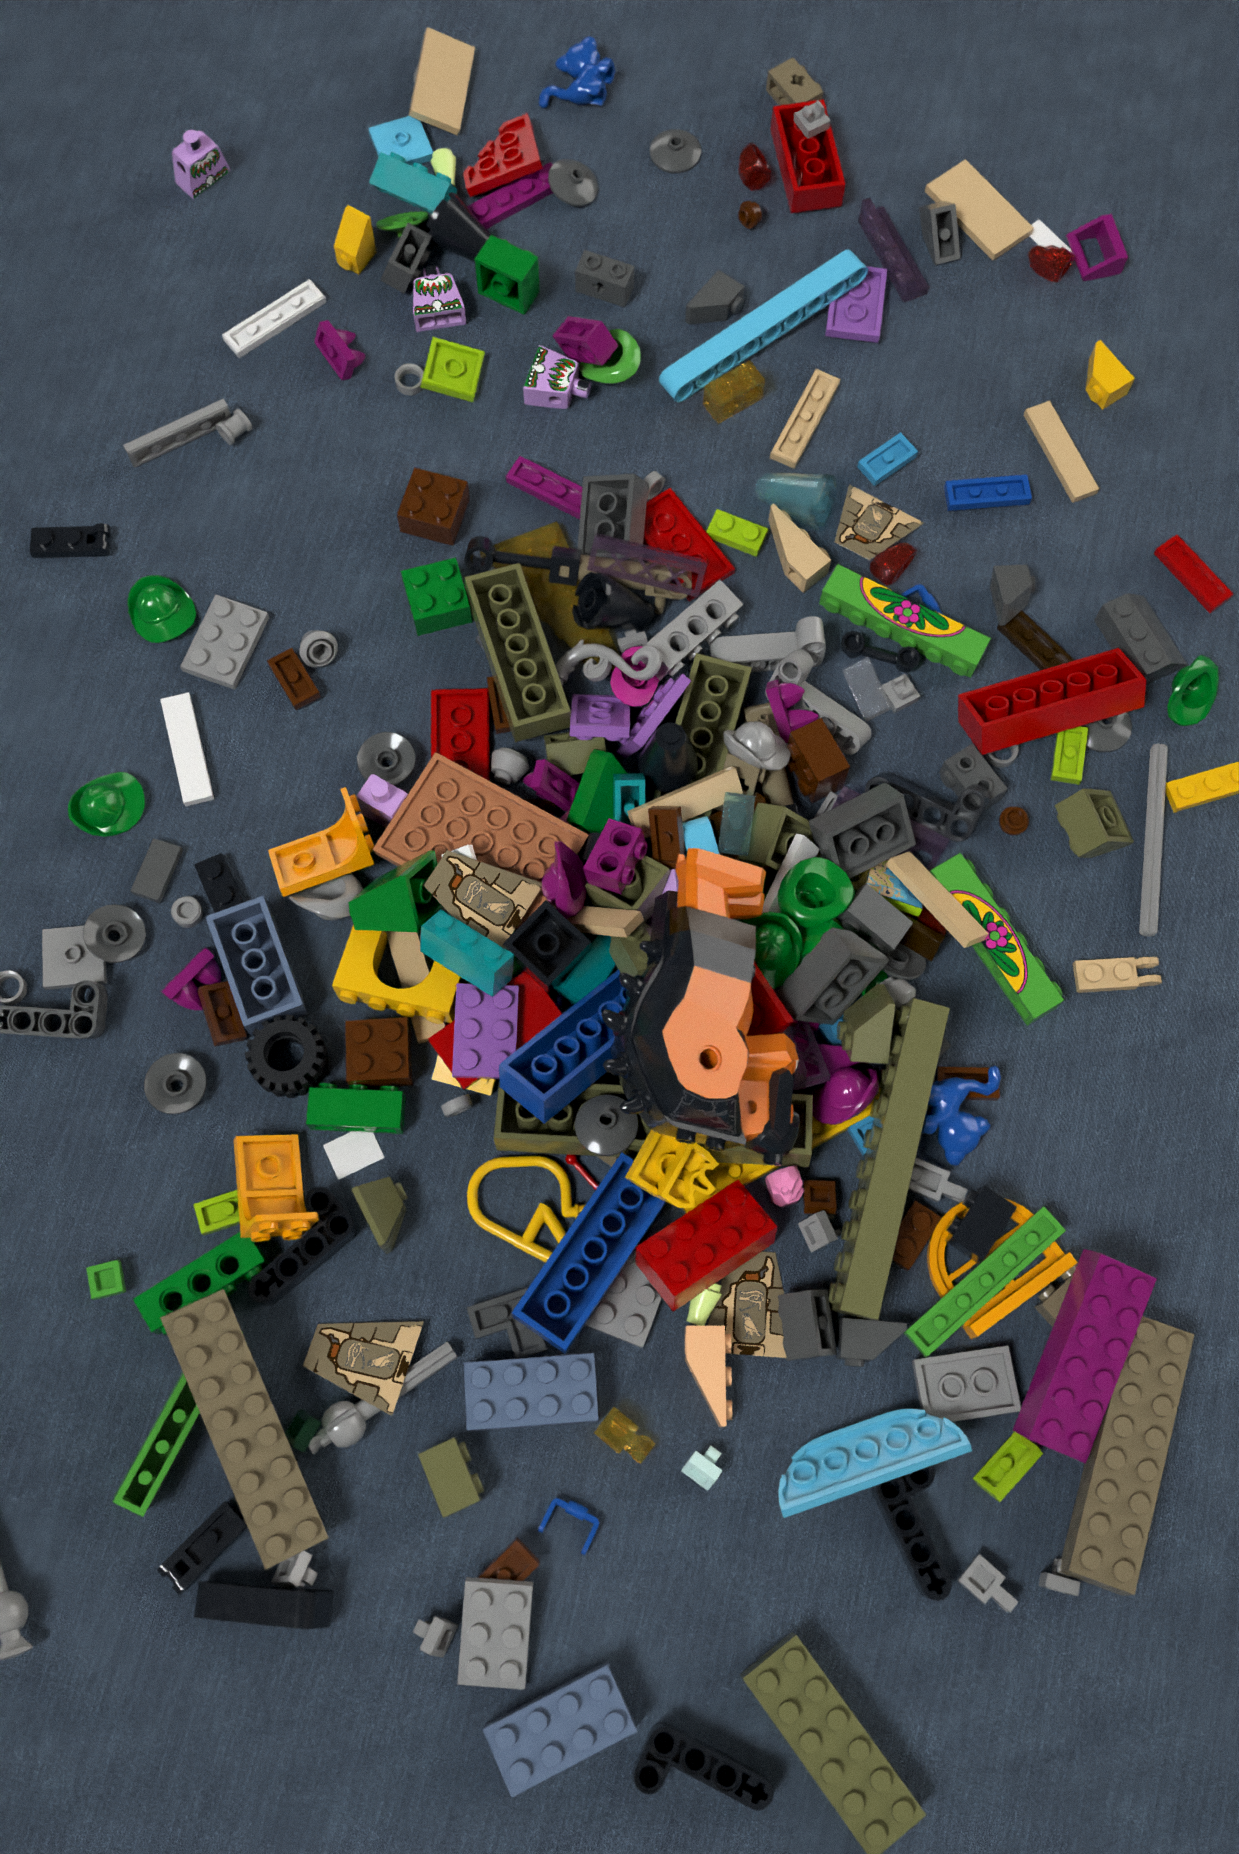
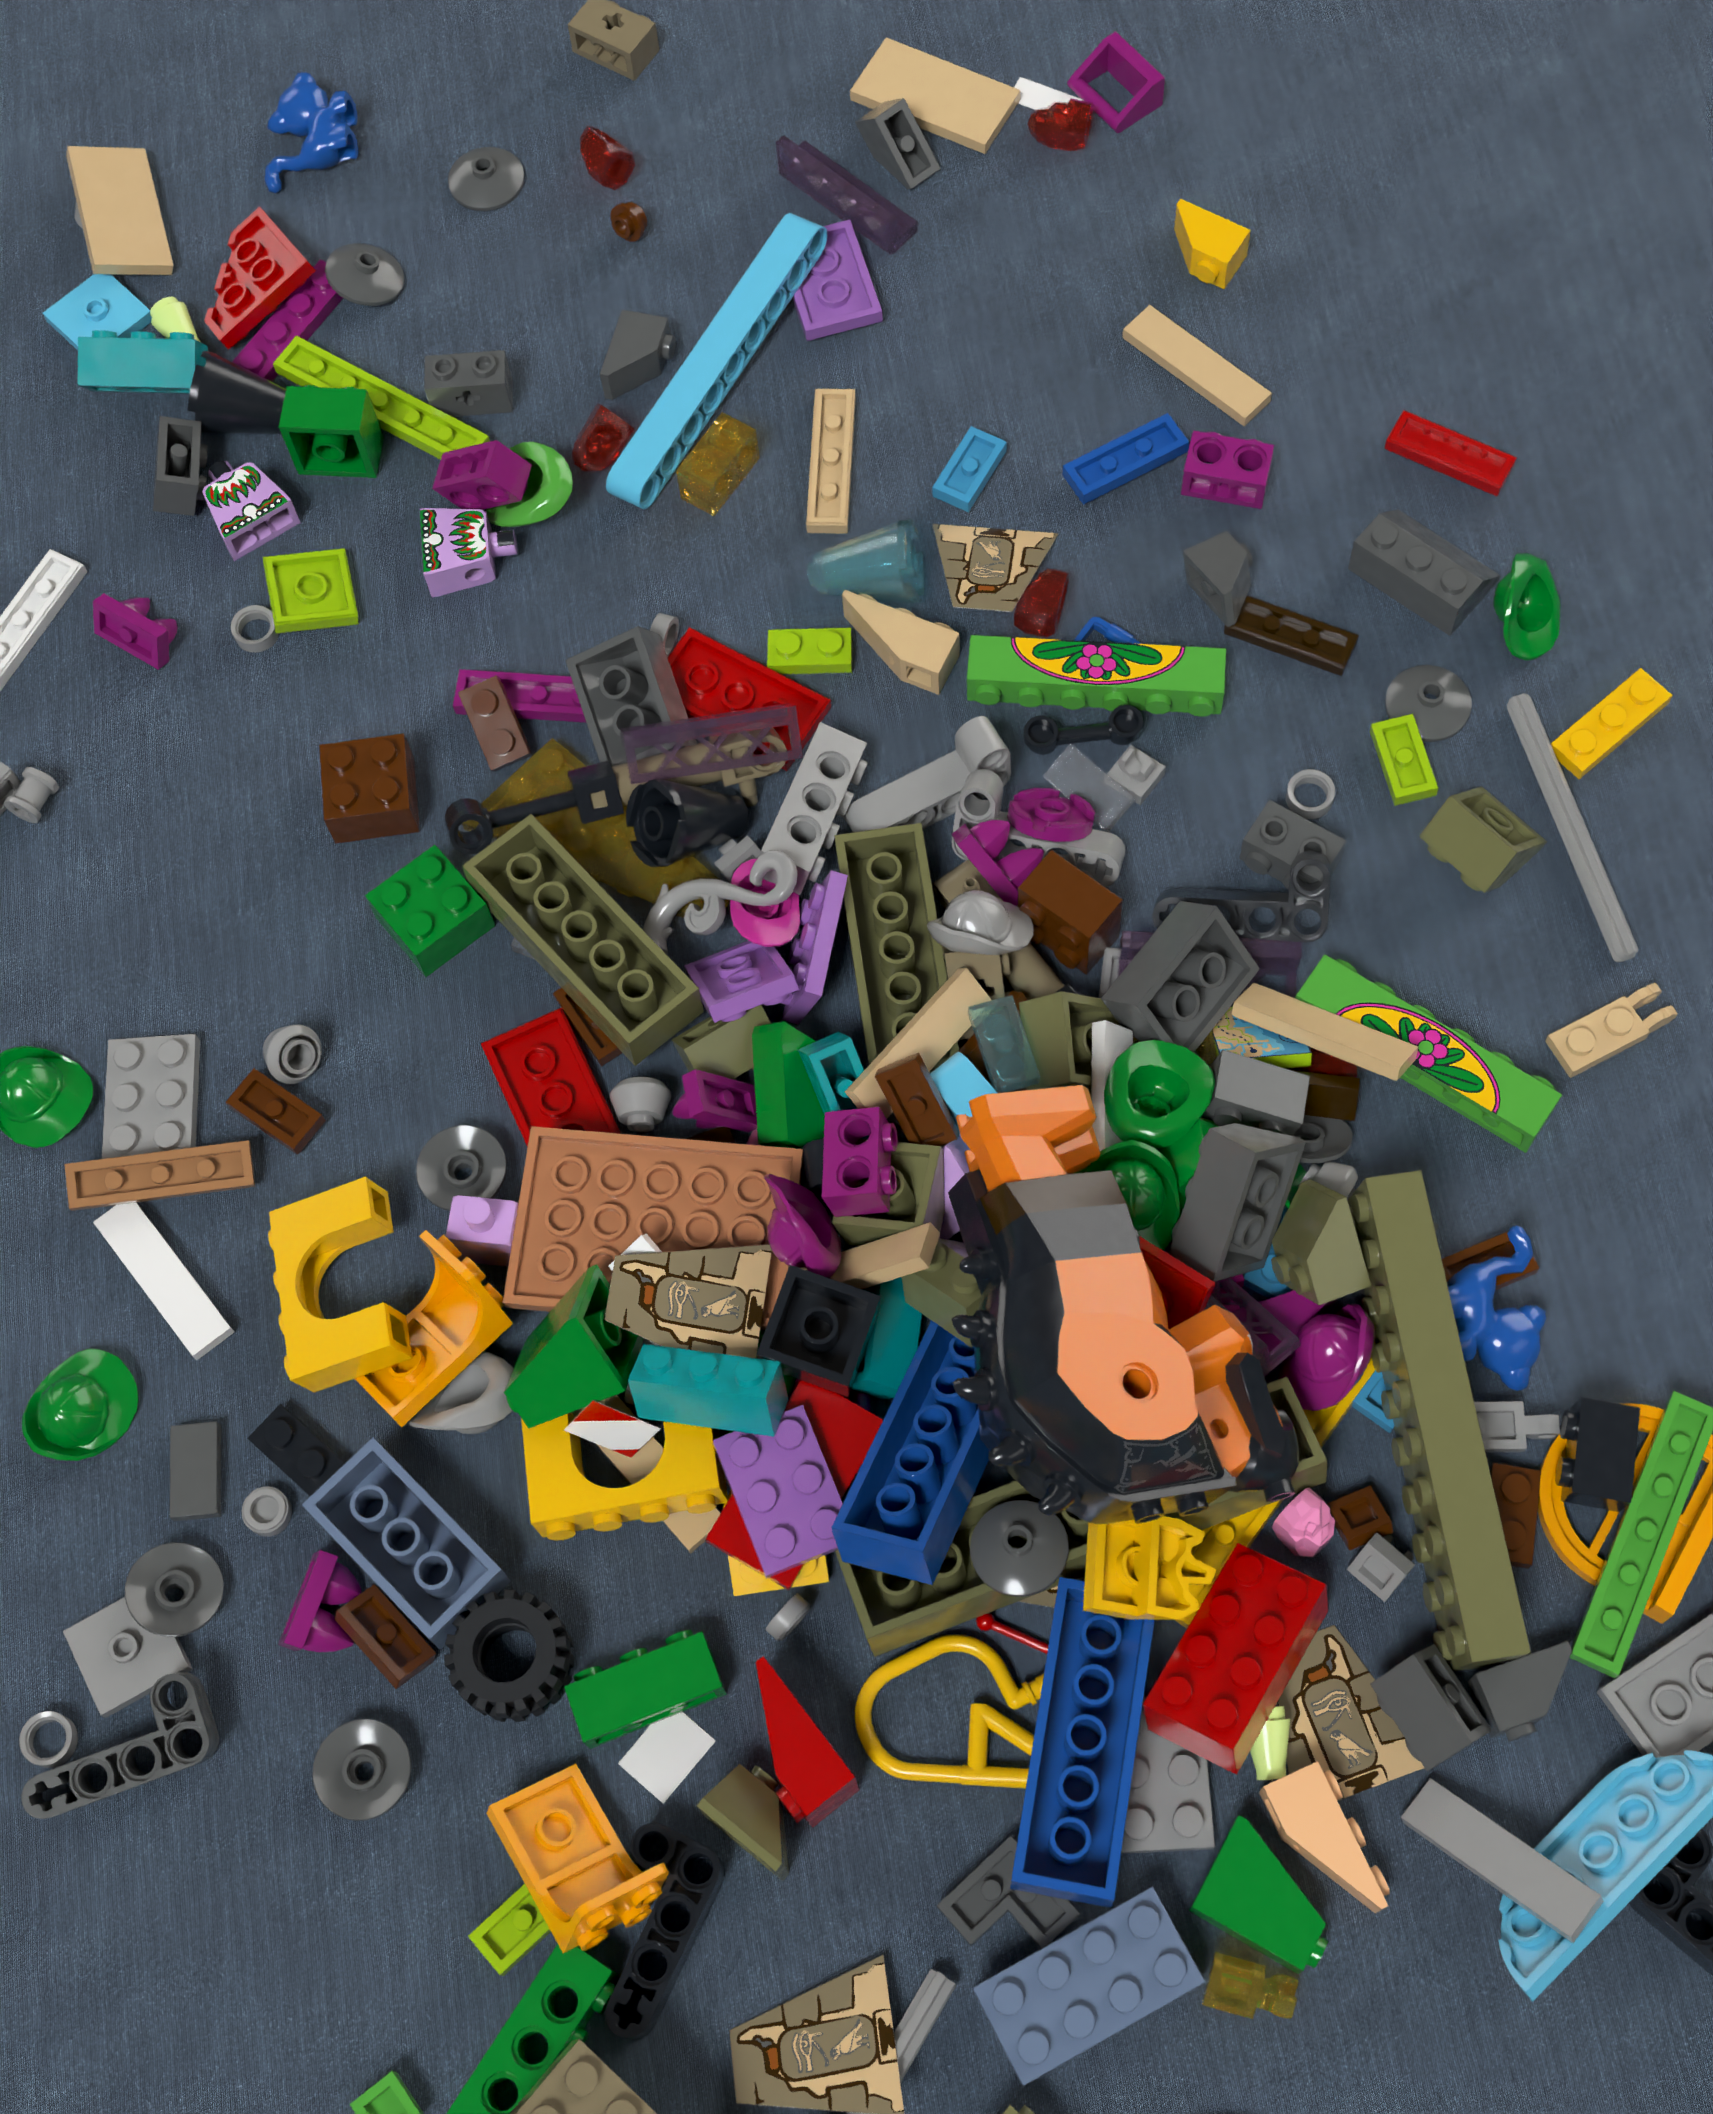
camera: 15 degrees left, 5 degrees down
(210, 688) = (159, 1175): none -> medium nougat plate
(275, 765) = (304, 1244): none -> yellow arch
(354, 240) = (93, 471): yellow slope -> none
(378, 1052) = (640, 1591): reddish brown brick -> none
(398, 222) = (146, 421): bright green dish -> none
(402, 951) = (612, 1429): none -> white sticker
(425, 1190) = (804, 1761): none -> red slope
(525, 498) = (495, 723): none -> reddish brown plate
(552, 275) = (395, 409): none -> lime plate
(653, 1389) = (1260, 1902): none -> green slope
(668, 759) = (866, 995): black cone -> none
(669, 347) = (600, 440): none -> clear red rock
(703, 1468) = (1381, 1983): light aqua tile -> none
(805, 1430) = (1502, 1860): none -> light grey tile
(807, 166) = (673, 114): red brick -> none
(812, 119) = (659, 63): light grey tile -> none
(833, 696) = (1050, 817): none -> magenta tile
(1013, 820) = (1373, 881): reddish brown plate -> none
(1043, 530) = (1225, 477): none -> magenta brick
(1051, 700) = (1347, 698): red brick -> none

